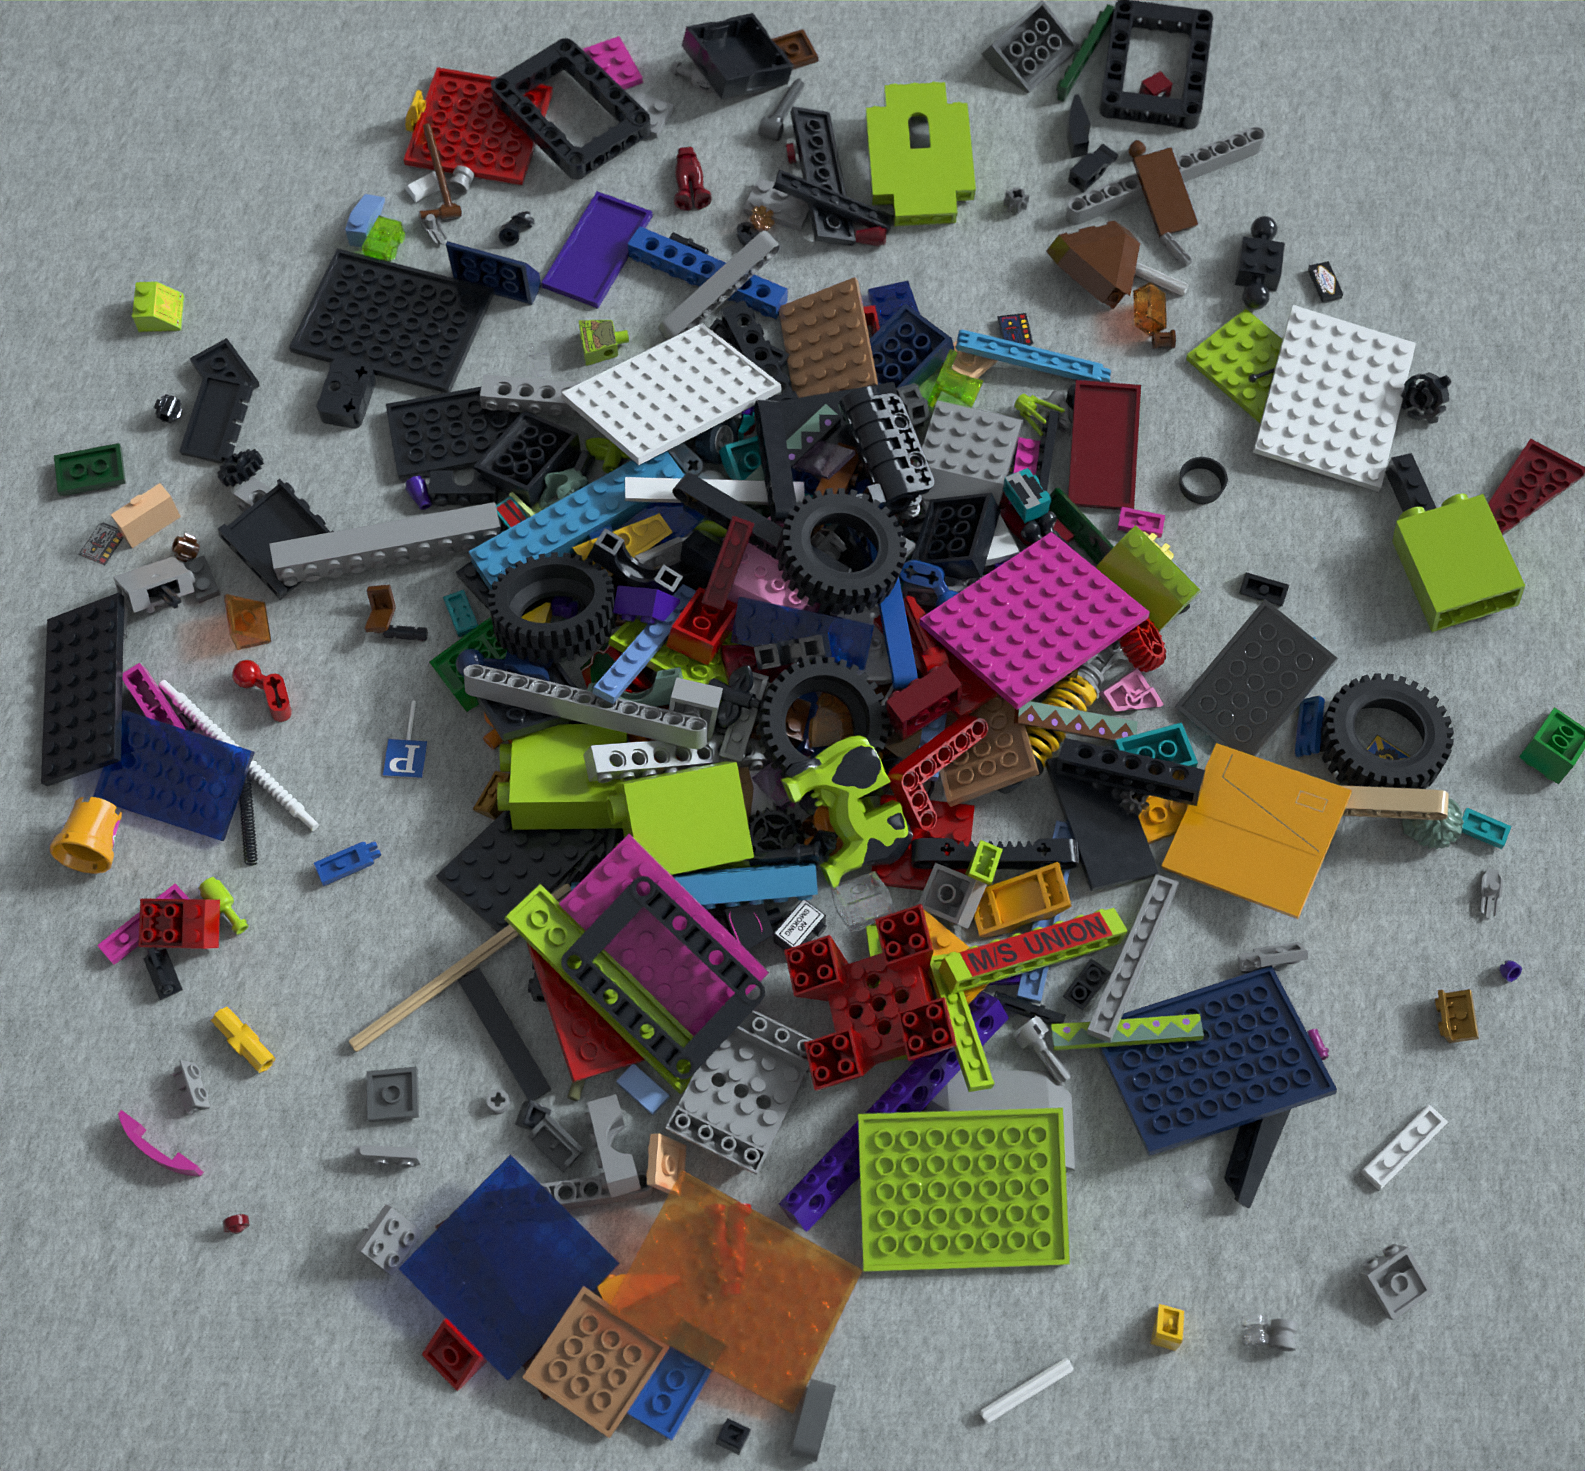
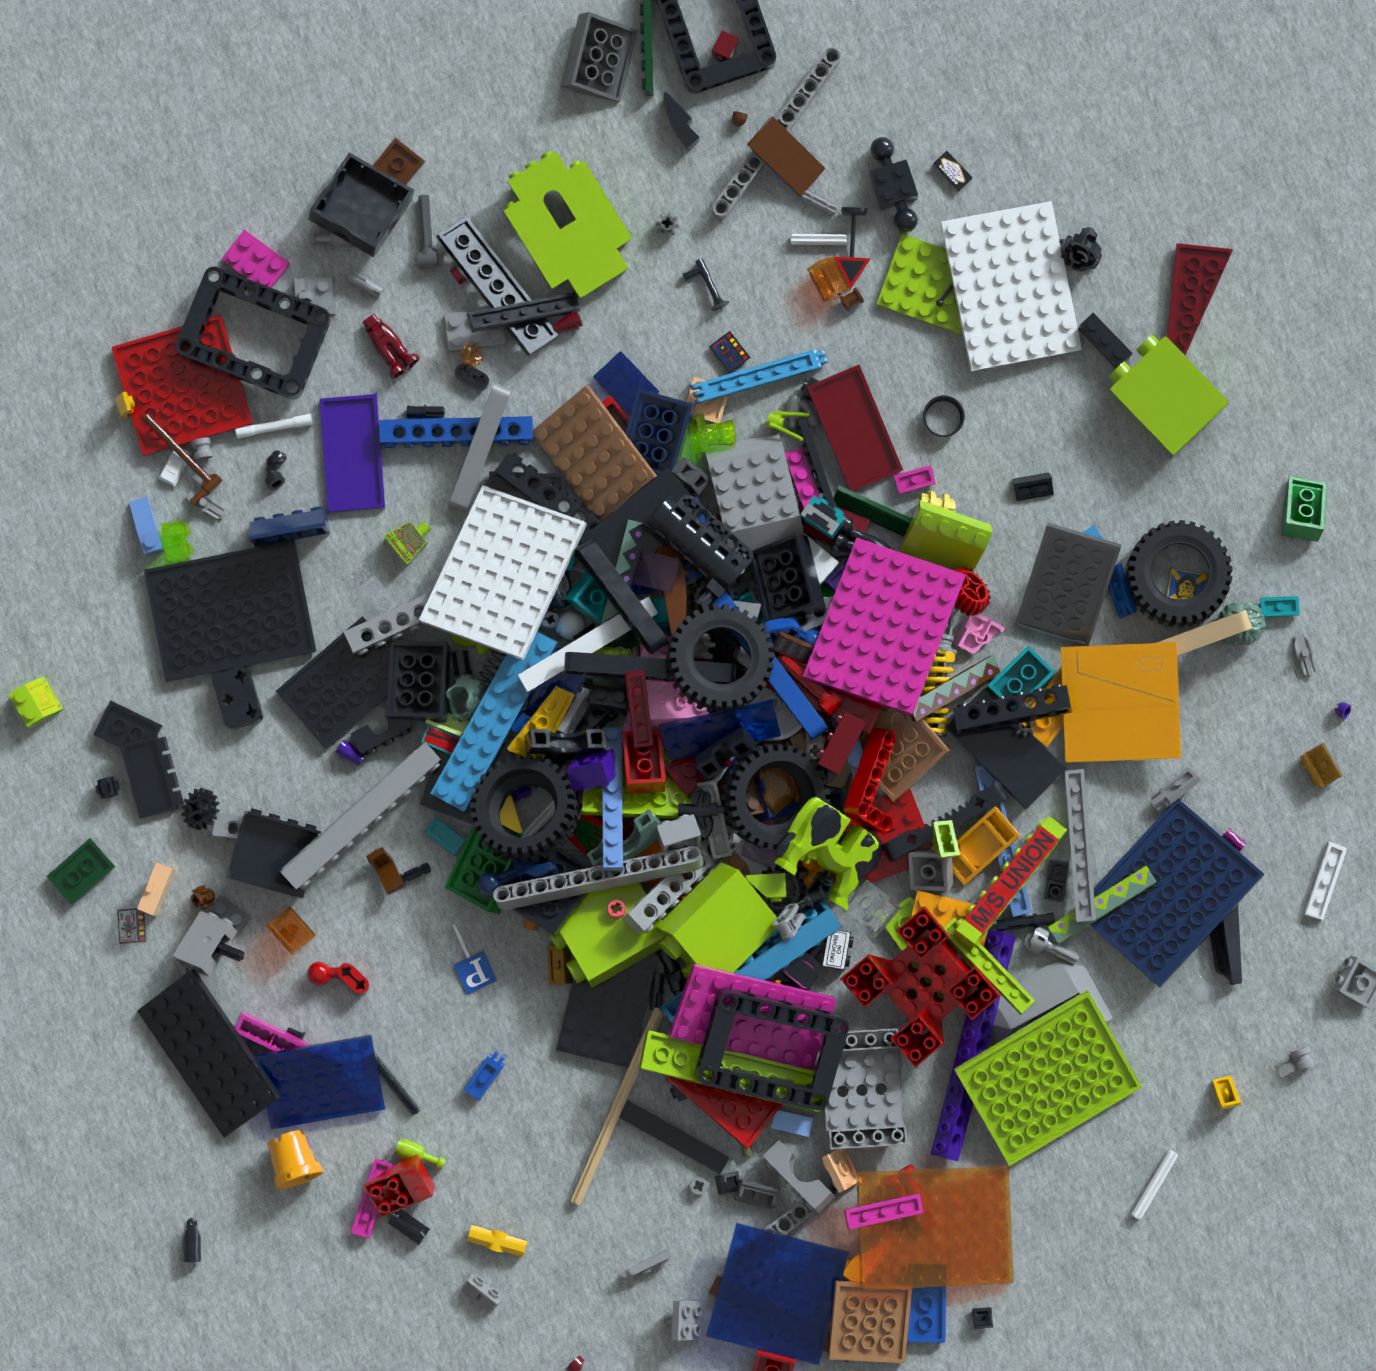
camera: 30 degrees left, 20 degrees up
(178, 1164) = (463, 1342): dark pink slope -> none
(295, 808) = (281, 1019): white hose -> none
(392, 1094) = (624, 1221): dark grey plate -> none
(559, 199) = (251, 430): none -> white piece
(582, 743) = (619, 914): none -> coral bush
(684, 1230) = (883, 1211): none -> dark pink plate
(700, 123) = (365, 284): none -> light grey axle
(757, 857) = (788, 921): none -> light grey piece
(764, 813) = (769, 885): none -> lime slope
(813, 1420) = (1028, 1280): dark grey beam -> none
(923, 590) = (792, 647): none -> tile
(1028, 284) = (702, 269): none -> black piece
(1091, 167) = (712, 155): black piece -> none
(1099, 260) = (765, 254): reddish brown panel -> none
(1180, 315) = (851, 266): none -> black piece

